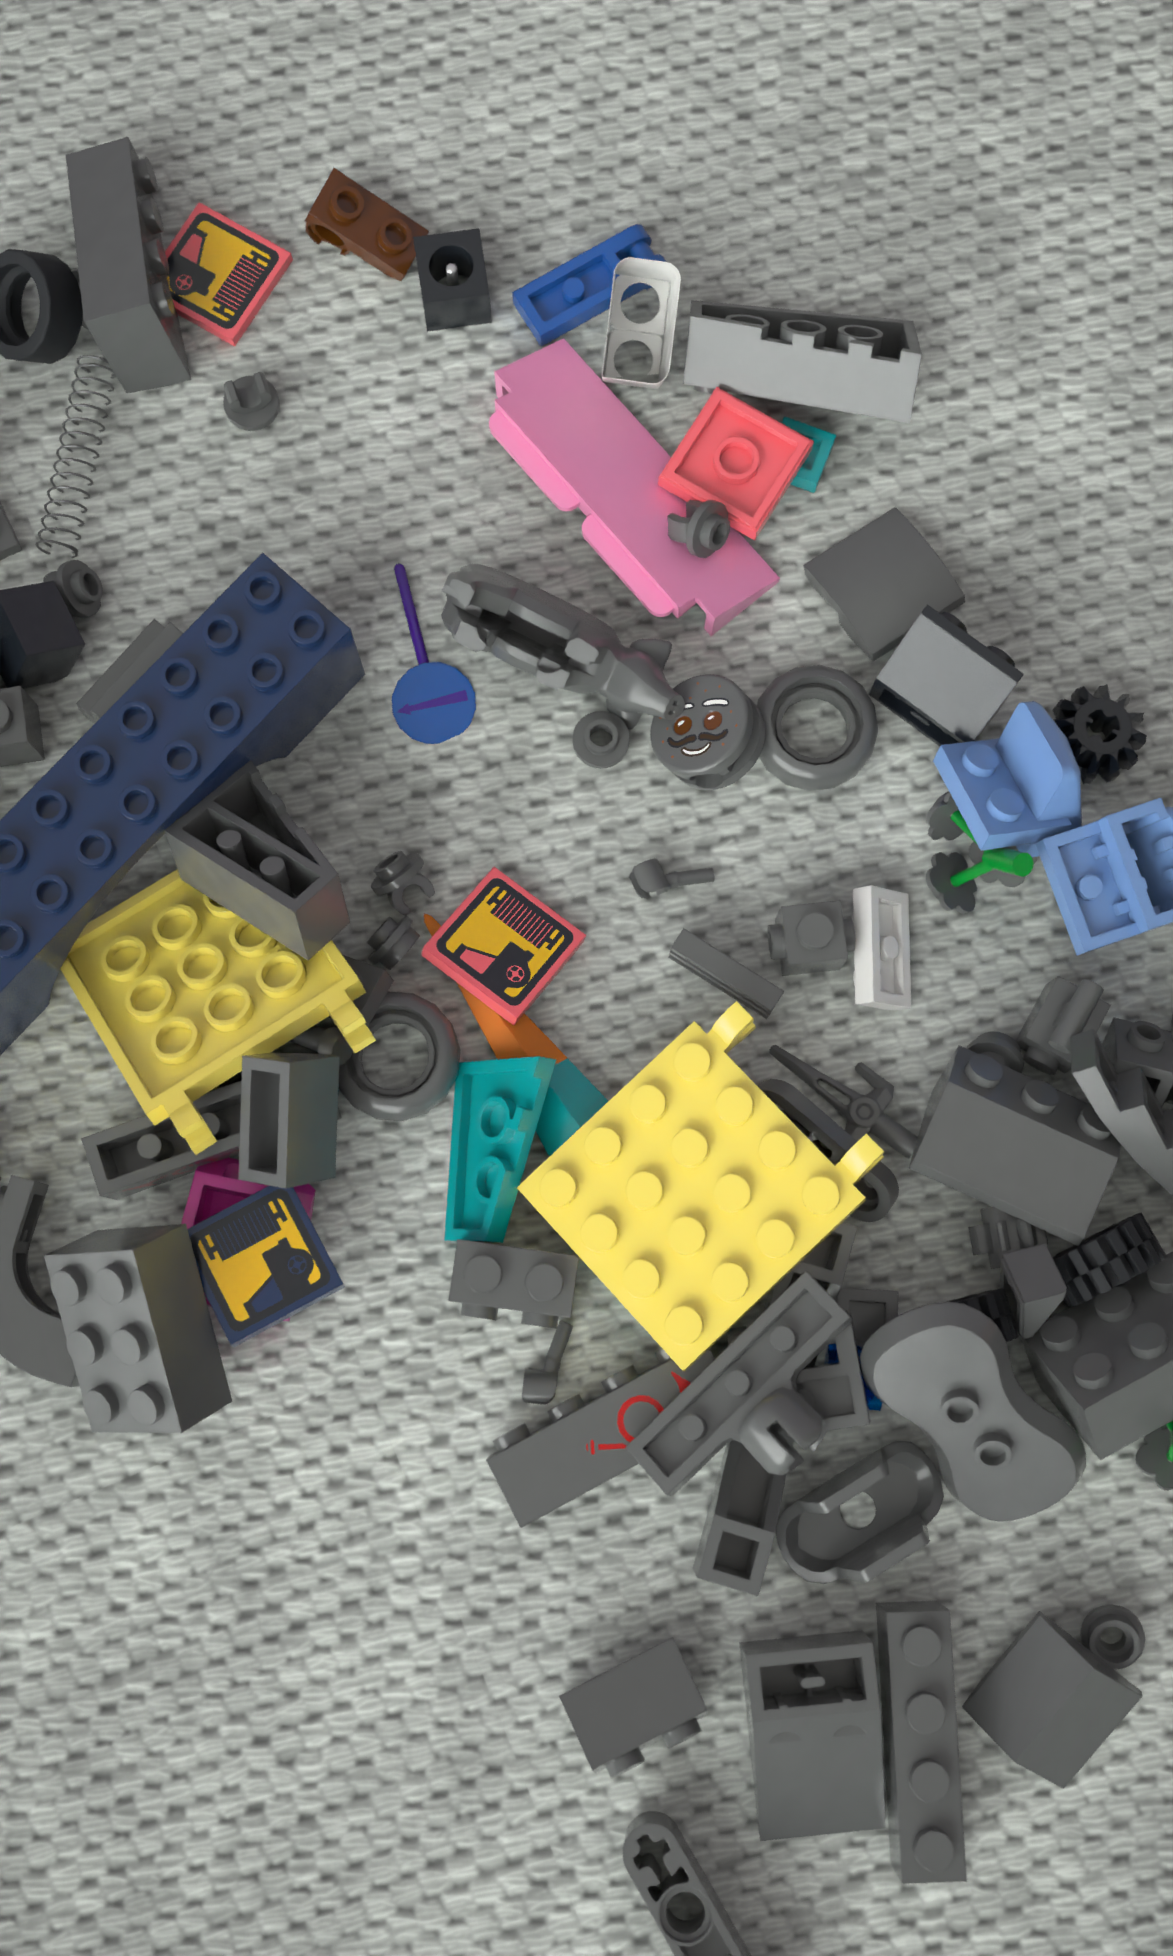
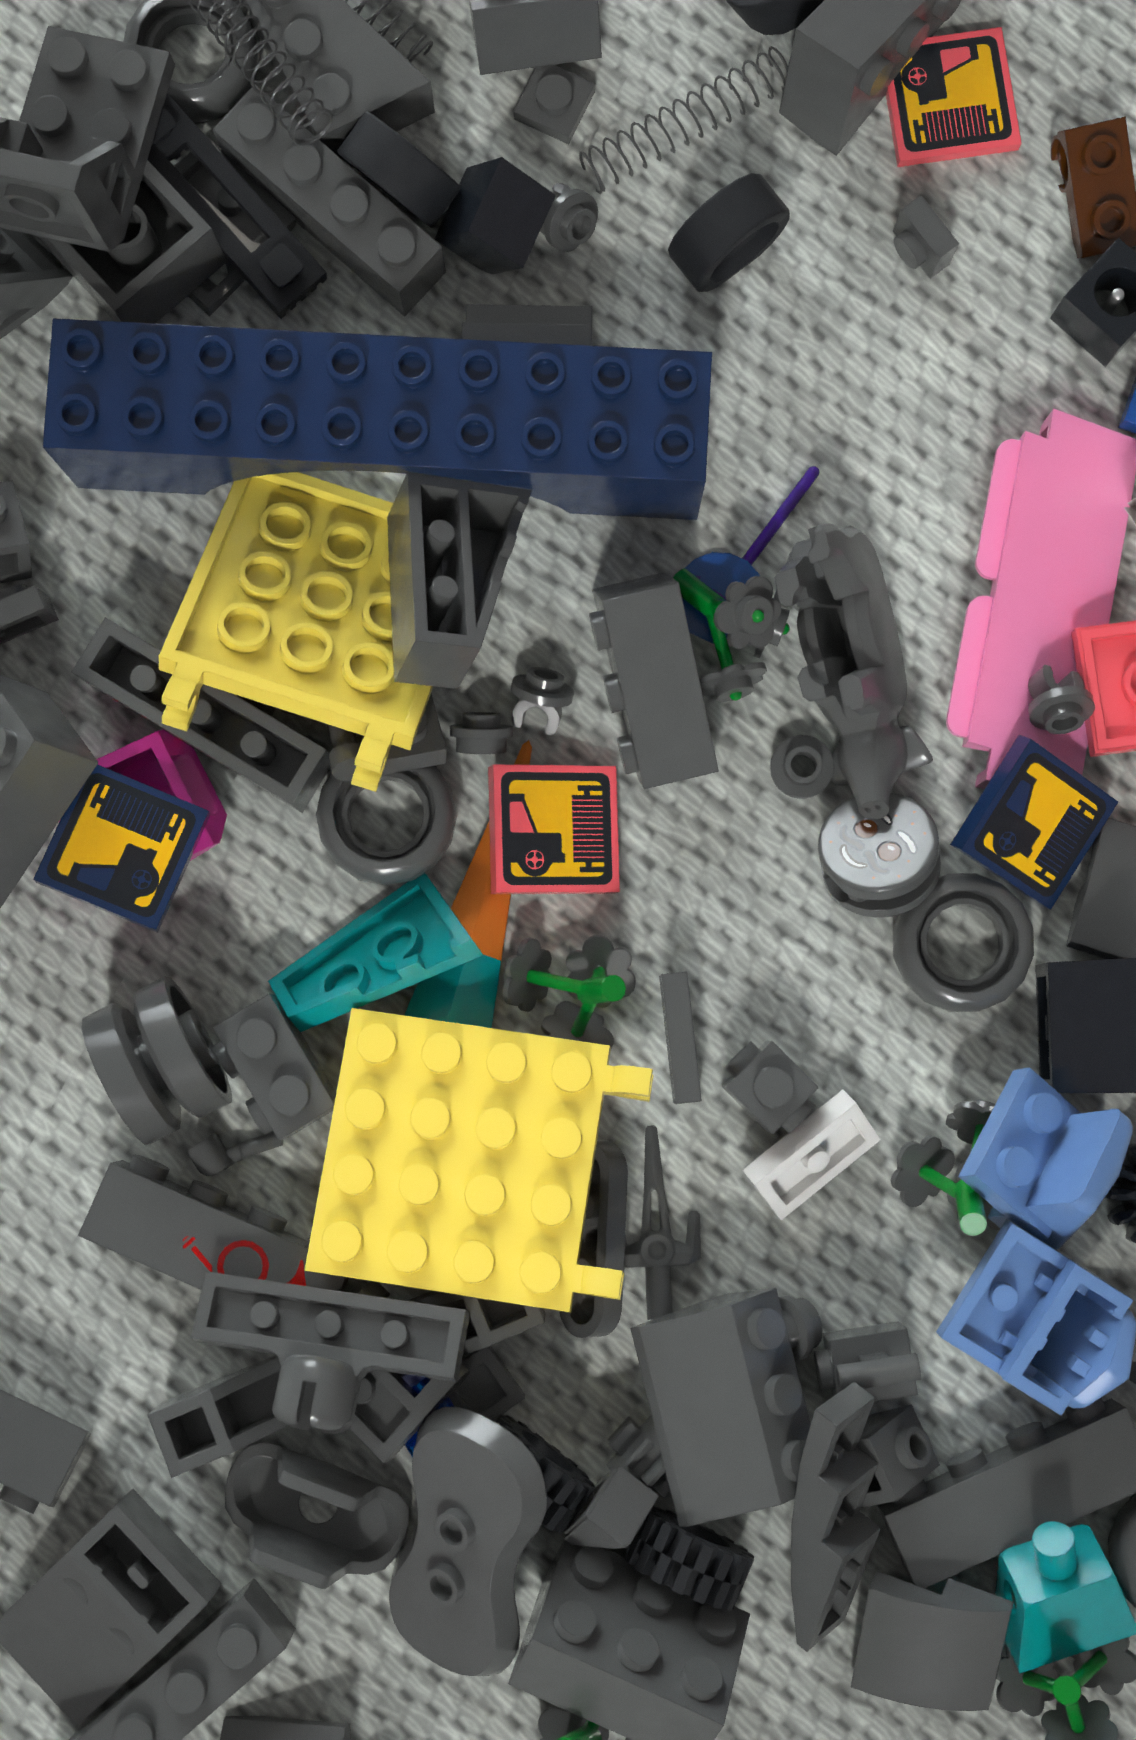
camera: 55 degrees right, 5 degrees up
(183, 486) = (728, 232): none -> black tyre
(251, 402) = (856, 224): dark grey plate -> none
(288, 1118) = (252, 774): dark grey brick -> none
(301, 365) = (923, 238): none -> dark grey plate
(439, 1362) = (156, 1061): none -> dark grey wheel
(456, 787) = (653, 680): none -> dark grey wedge
(468, 683) = (748, 618): none -> dark grey plant
(632, 999) = (596, 979): none -> dark grey plant
(650, 878) = (713, 907): dark grey hand -> none
(770, 611) = (1034, 822): none -> tile

